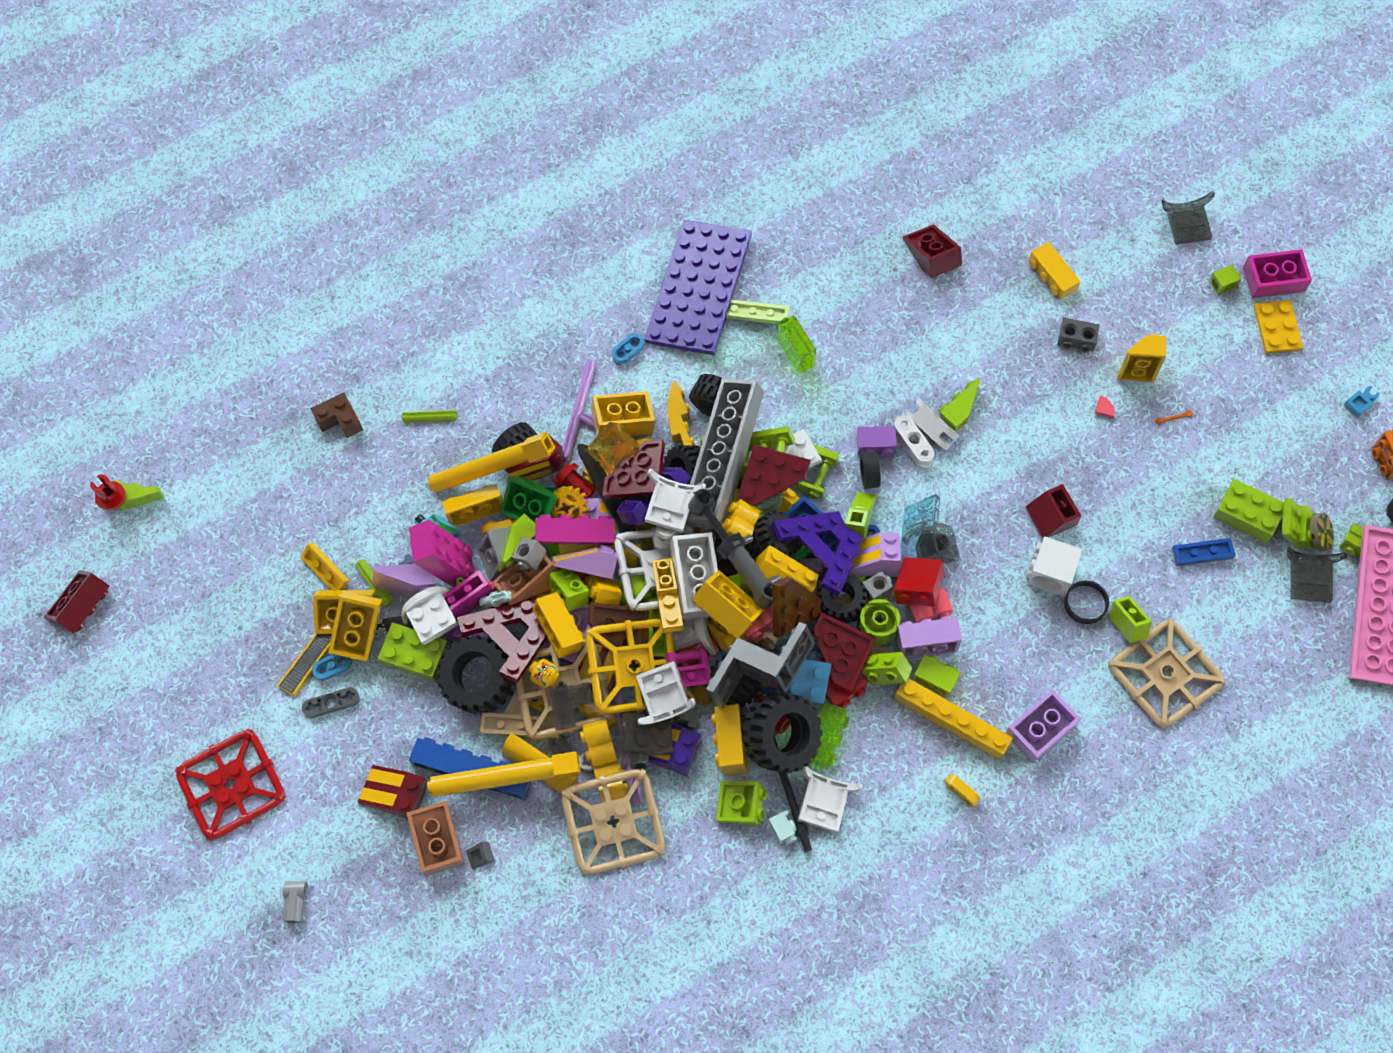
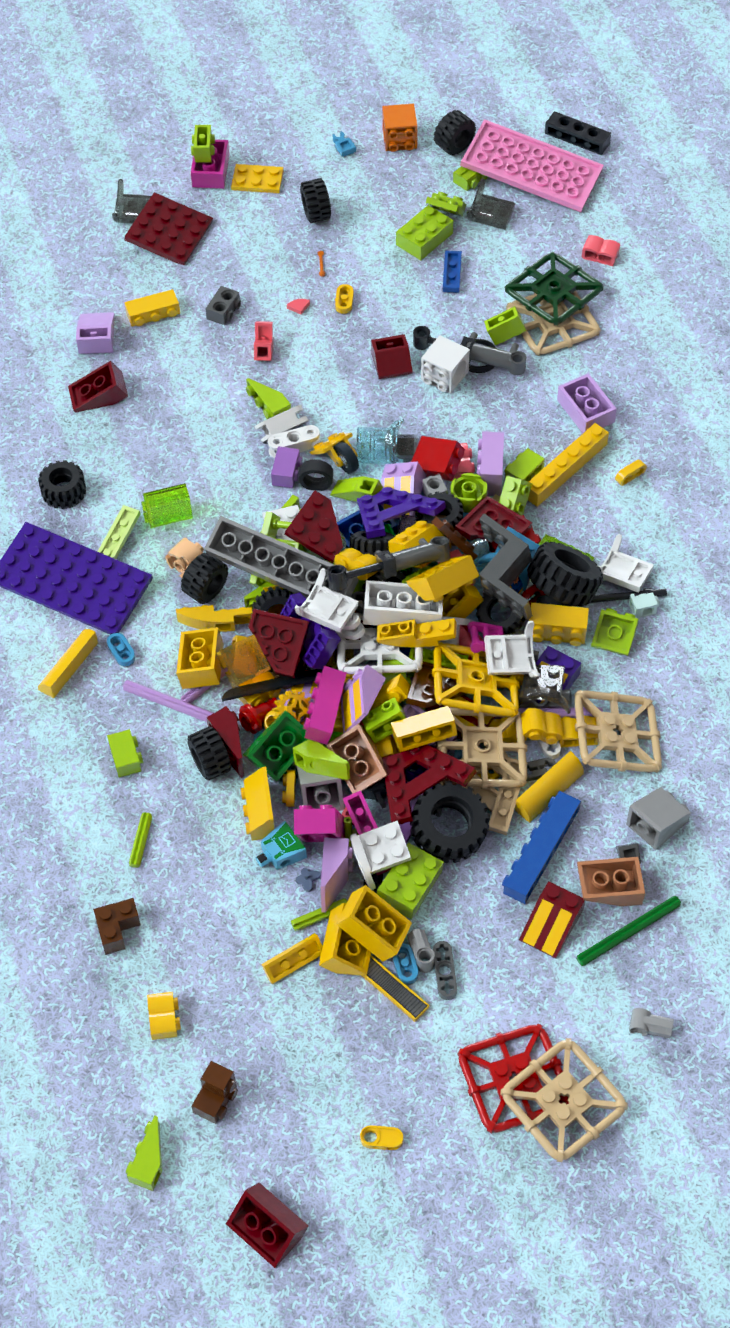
camera: 80 degrees left, 10 degrees down
(108, 487) = (151, 1163): red piece -> none
(162, 683) = (387, 1137): none -> yellow piece
(187, 532) = (216, 1091): none -> reddish brown brick
(204, 842) = (564, 1114): none -> tan plate
(257, 475) = (162, 1015): none -> yellow brick
(348, 676) = (422, 950): none -> light grey piece
(393, 866) = (628, 930): none -> green axle
(495, 599) = (377, 788): light aqua axle -> none
(511, 379) = (124, 753): none -> lime brick
(519, 876) = (657, 817): none -> light grey slope
(529, 554) = (334, 741): light grey brick -> none
(531, 450) = (233, 714): yellow brick -> none
(544, 673) = (470, 750): yellow head -> none
(557, 766) = (561, 806): yellow brick -> none
(563, 701) = (499, 740): clear smoke plate -> none
(603, 309) = (68, 663): none -> yellow brick
(738, 369) = (183, 554): none -> light nougat brick
(804, 261) = (66, 494): none -> black tyre
(905, 489) = (342, 452): none -> plate
(1006, 227) = (95, 333): none -> lavender slope
(1036, 385) = (263, 341): none -> coral brick
(1080, 592) = (513, 360): none -> dark grey piece
(1125, 449) = (343, 299): none -> yellow plate
(1144, 359) = (269, 258): yellow slope -> none
(1170, 258) = (168, 229): none -> dark red plate
(1210, 676) = (554, 296): none -> dark green plate
(1225, 279) = (202, 198): lime brick -> none
(1252, 387) = (315, 200): none -> black tyre
(1287, 254) = (203, 140): none -> lime brick
(1289, 709) = (600, 250): none -> coral brick
(1323, 531) = (455, 192): tile -> none

